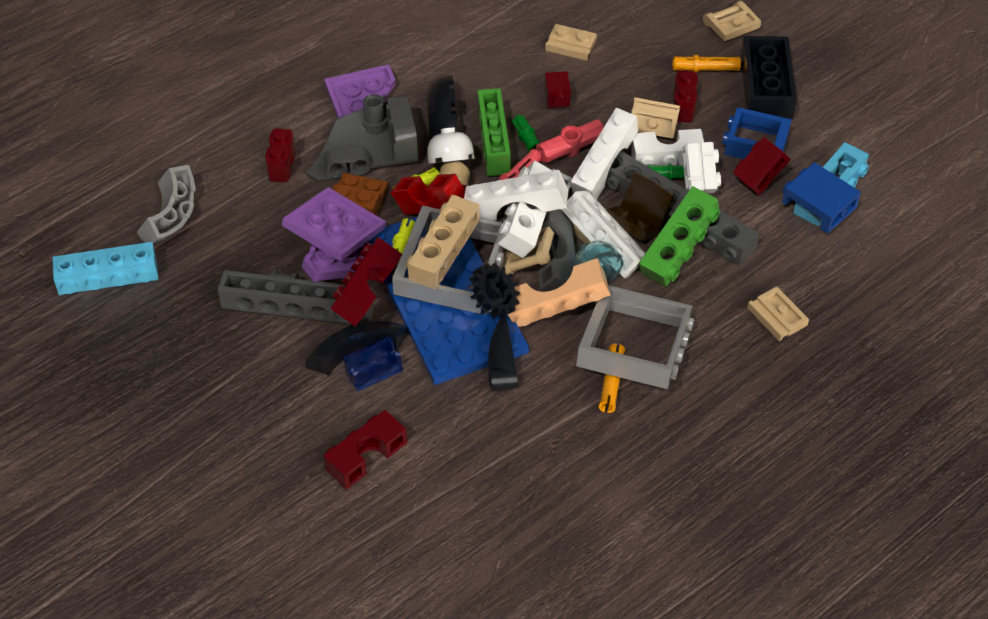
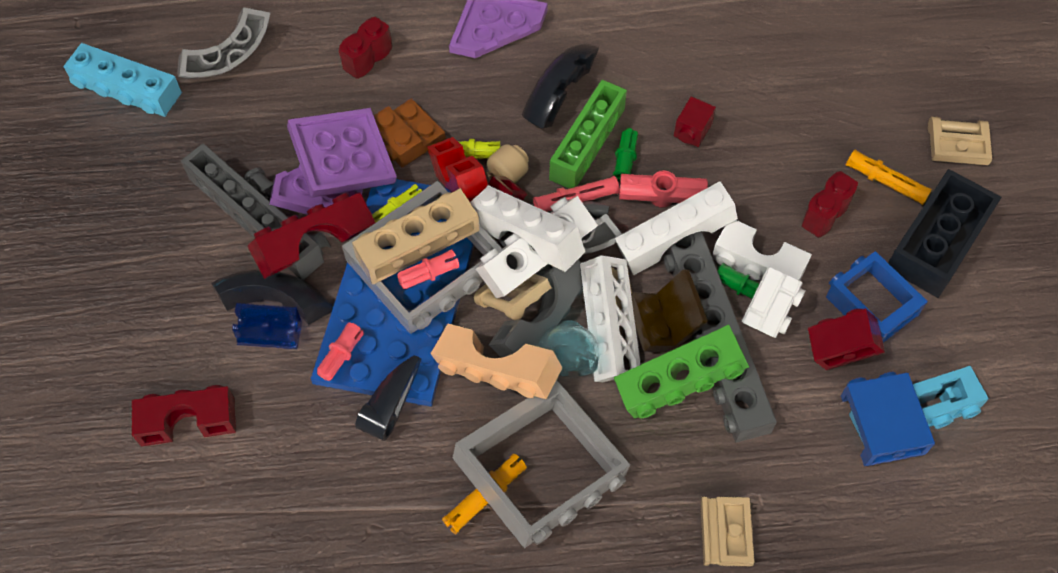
camera: 35 degrees right, 10 degrees up
(368, 139) = (462, 76): dark grey panel -> none
(444, 345) = (340, 351): none -> coral axle
(450, 147) = (524, 129): white cylinder -> none
(468, 258) = (427, 269): none -> coral axle
(494, 290) = (416, 331): black gear -> none
(571, 42) = (759, 73): tan plate -> none
(656, 117) = (773, 211): tan plate -> none

